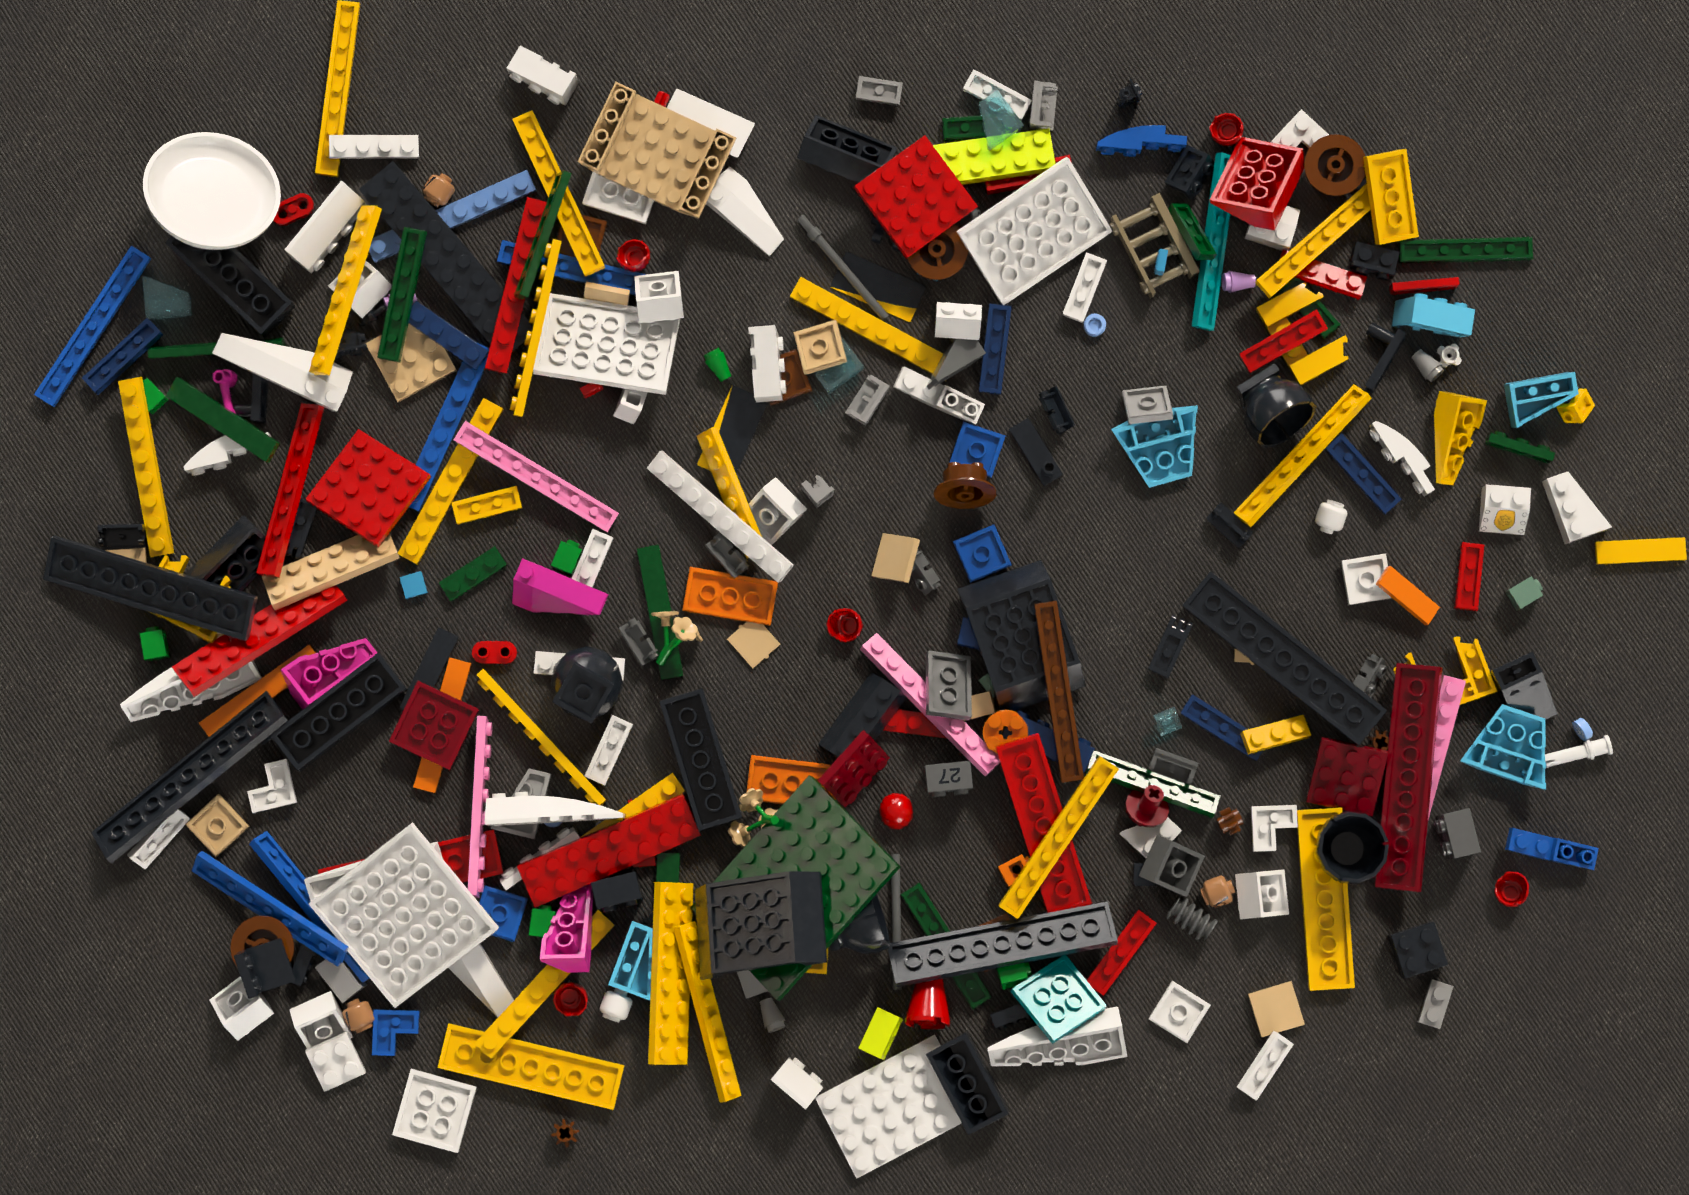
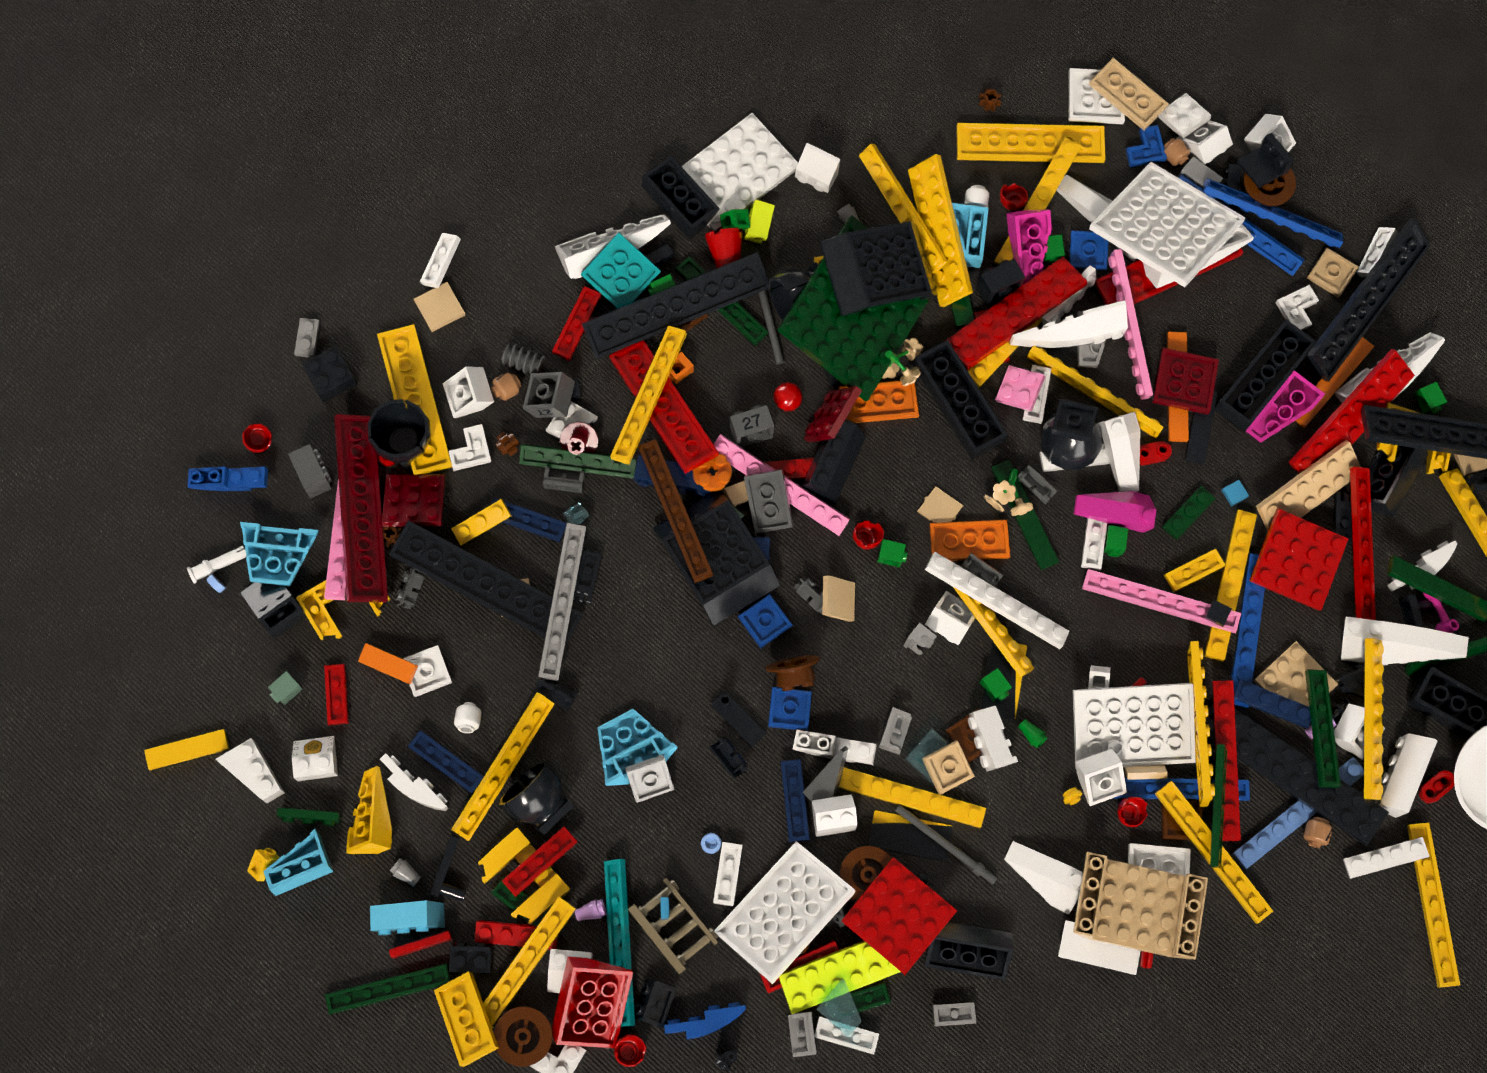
camera: 165 degrees right, 10 degrees down
(396, 1101) = (1128, 94): none -> tan tile
(479, 444) = (1218, 613): none -> black tile
(529, 663) = (1122, 445): none -> white wedge
(542, 76) = (1258, 956): white wedge -> none
(627, 759) = (1020, 388): none -> bright pink plate
(693, 287) = (1072, 796): none -> yellow plate
(745, 424) = (996, 685): none -> green brick
(822, 598) = (892, 553): none -> green brick
(910, 1035) = (735, 219): none -> green brick
(1179, 1011) = (519, 289): white tile -> none
(1192, 232) = (642, 944): dark green plate -> none
(1203, 620) = (562, 602): none -> light grey plate
(1454, 359) = (393, 889): white plate -> none

